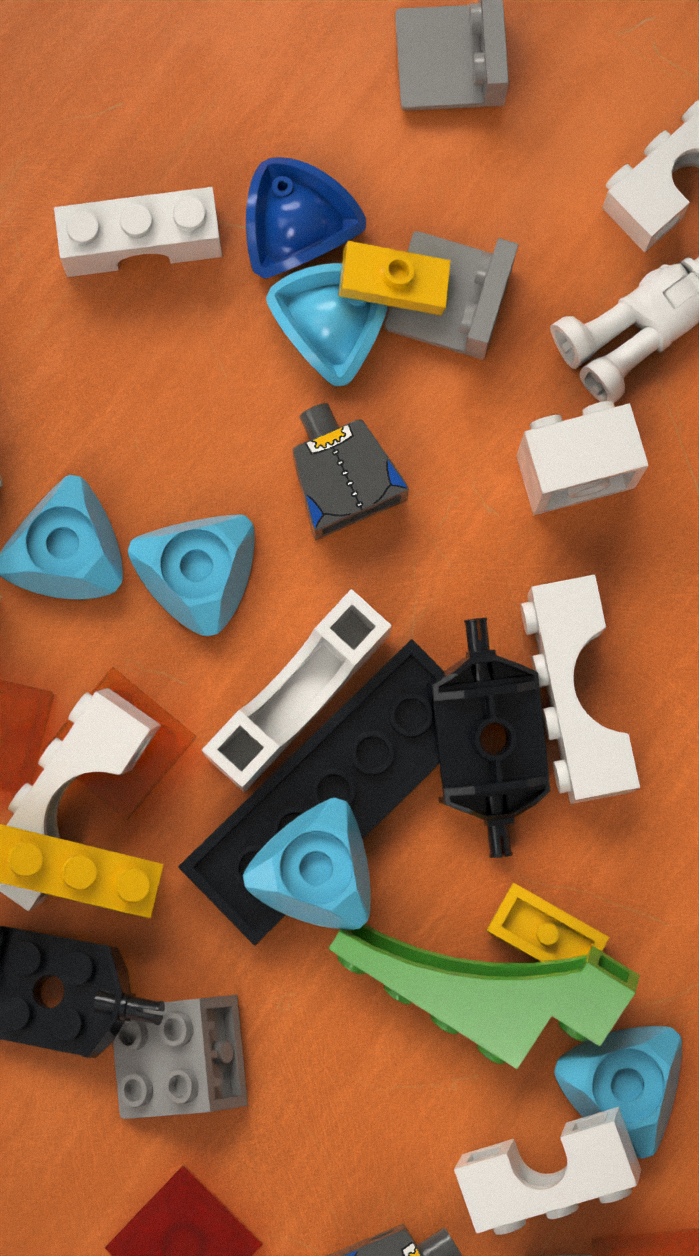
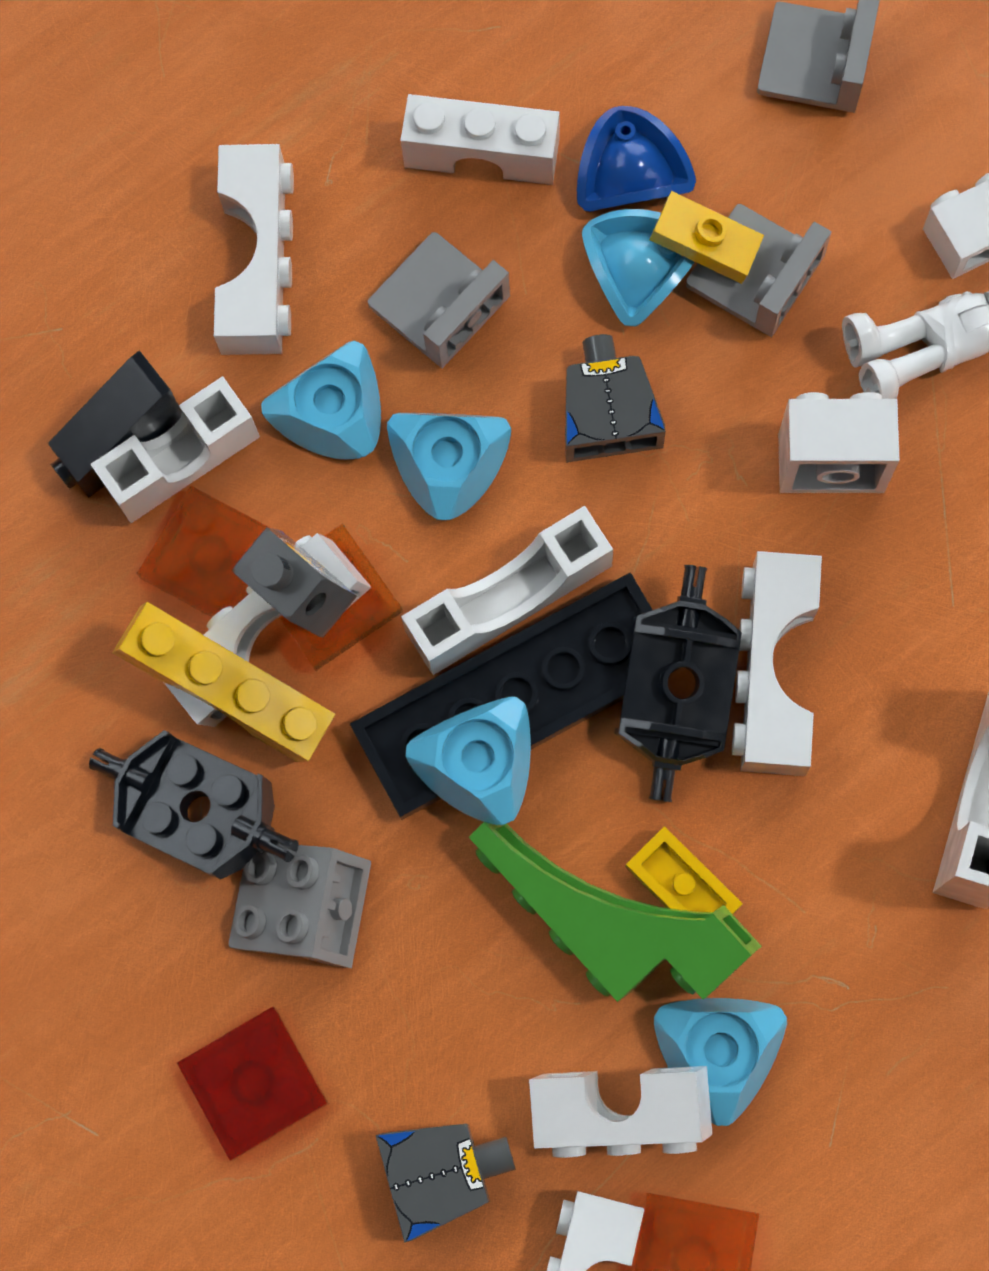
camera: 25 degrees right, 5 degrees down
(88, 750) = (291, 579): none -> dark grey torso
(142, 407) = (440, 298): none -> light grey bracket

